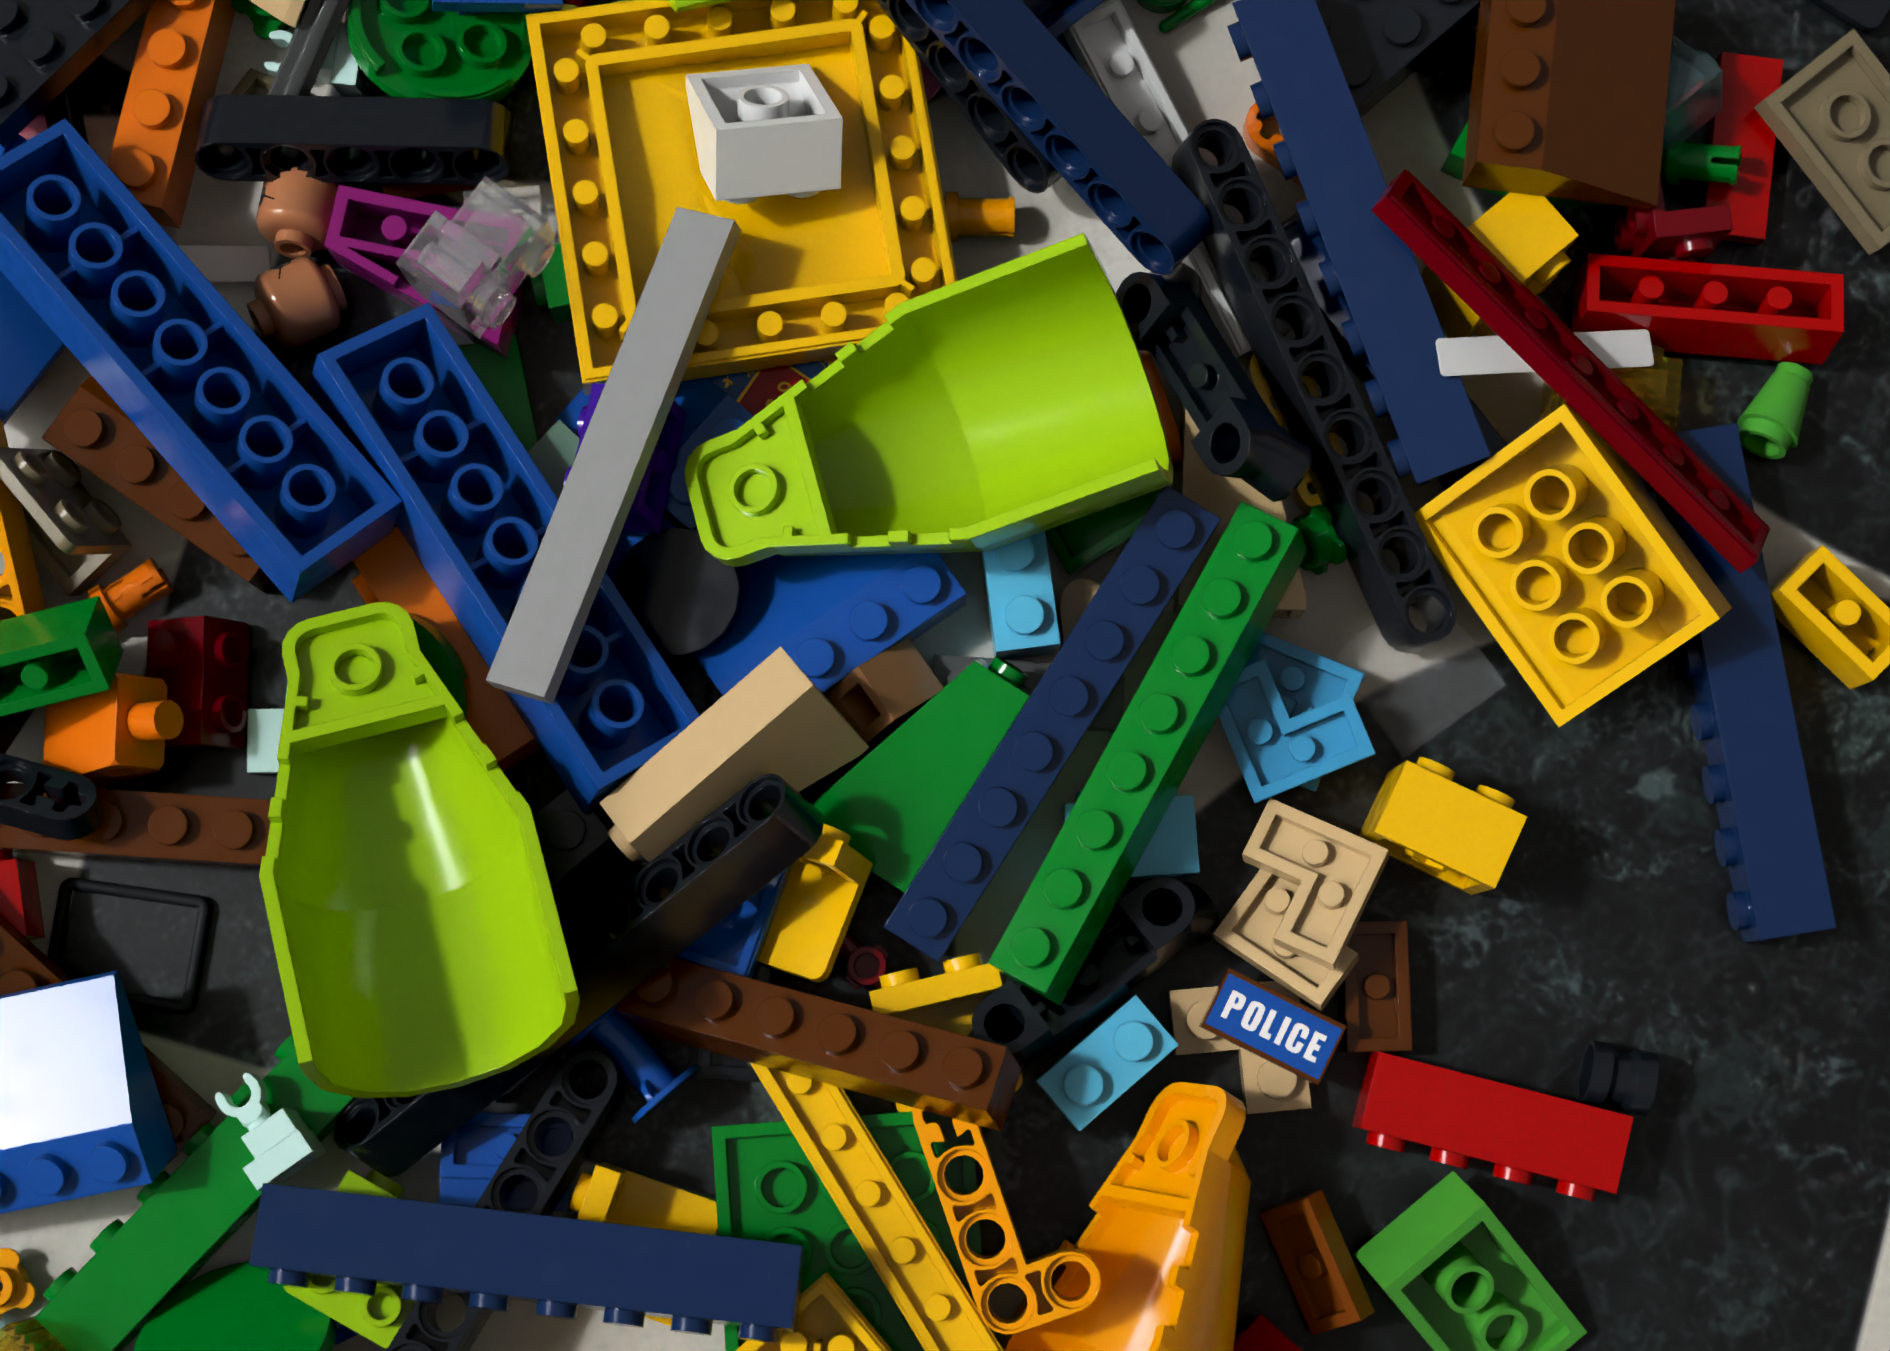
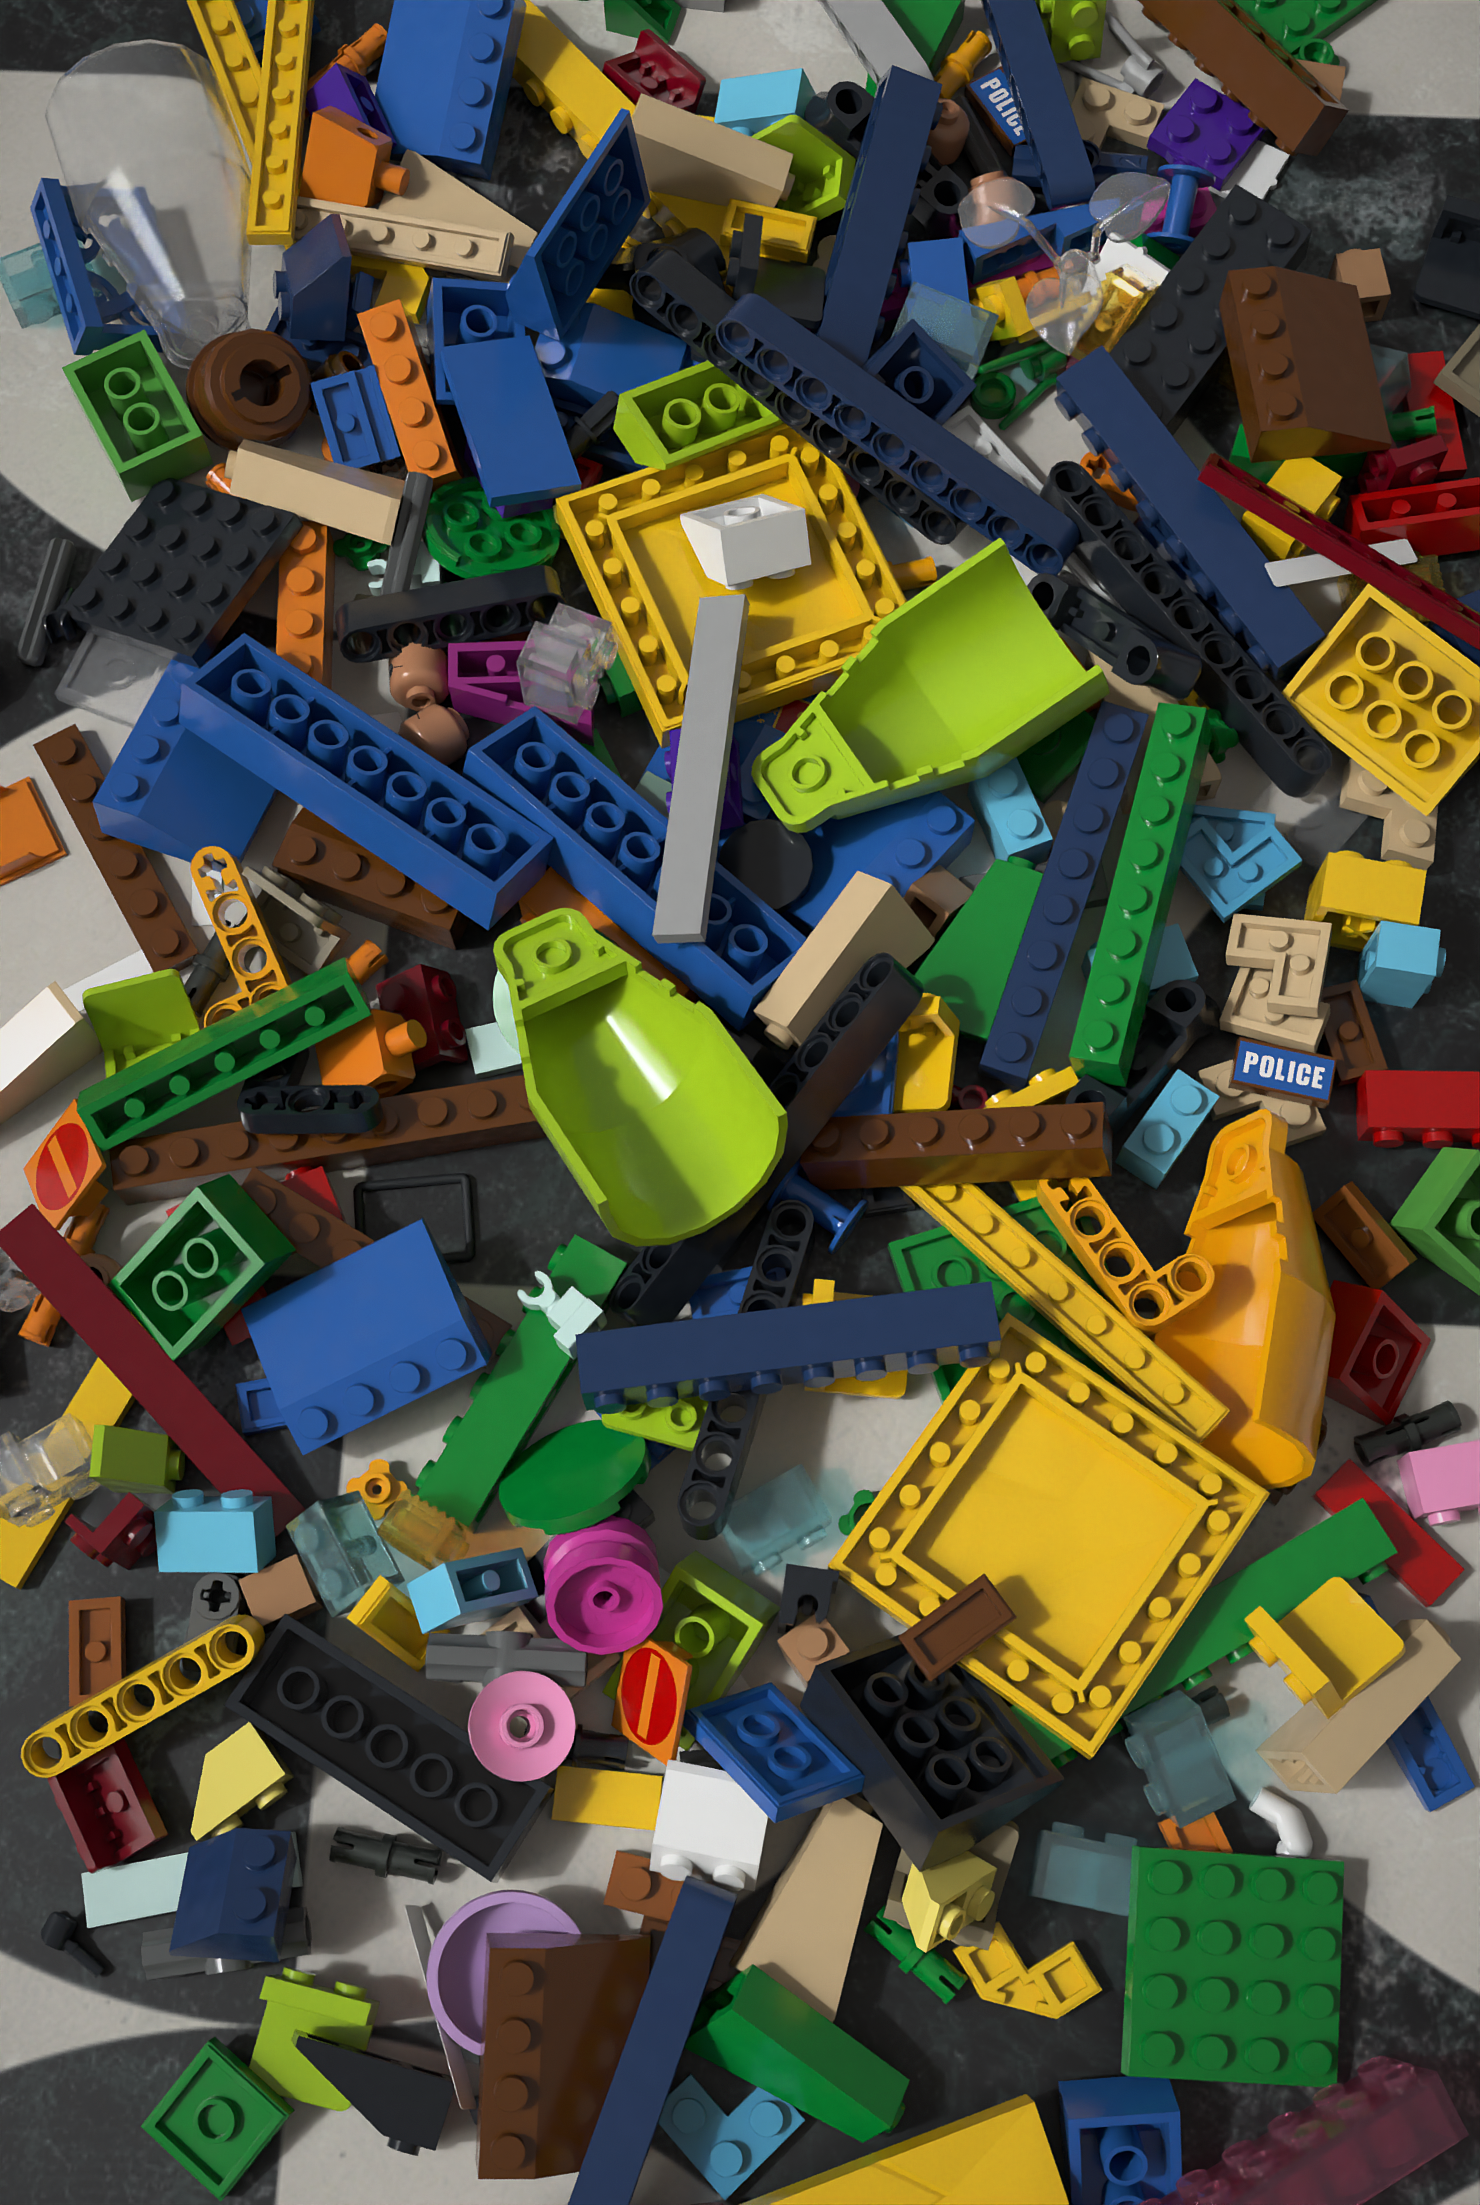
camera: 10 degrees left, 10 degrees down
(1464, 920) = (1399, 963): none -> medium azure brick
(1529, 738) = (1406, 830): none -> tan plate

